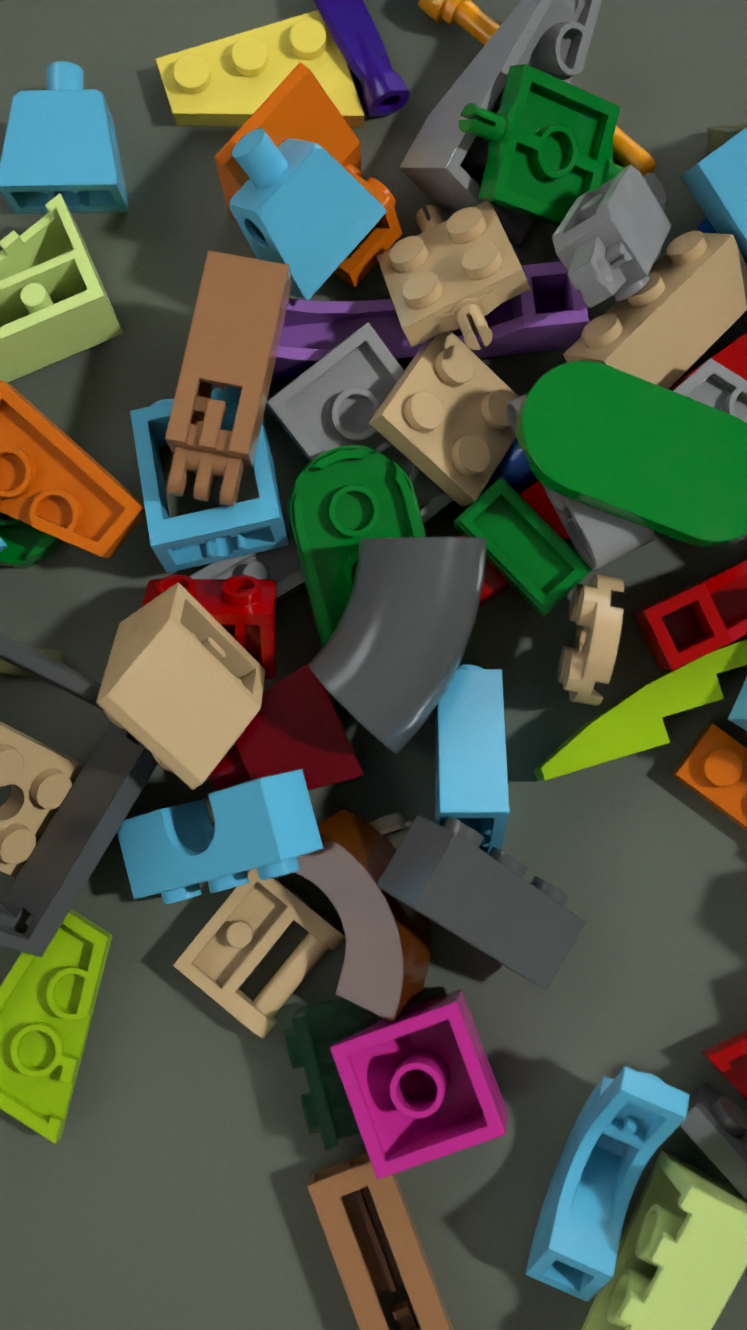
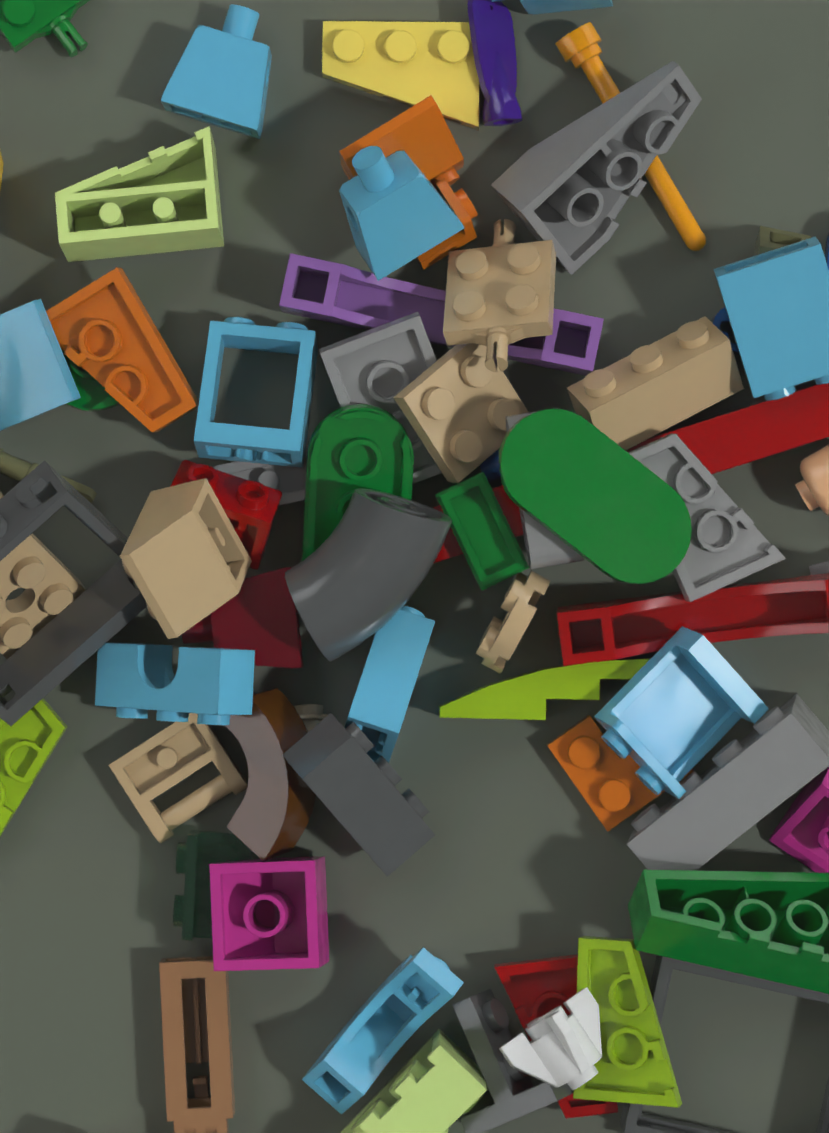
camera: 20 degrees right, 5 degrees up
(231, 345) = (303, 309): medium nougat hinge -> none
(544, 144) = (613, 217): green plate -> none
(614, 236) = (635, 310): light grey hinge -> none

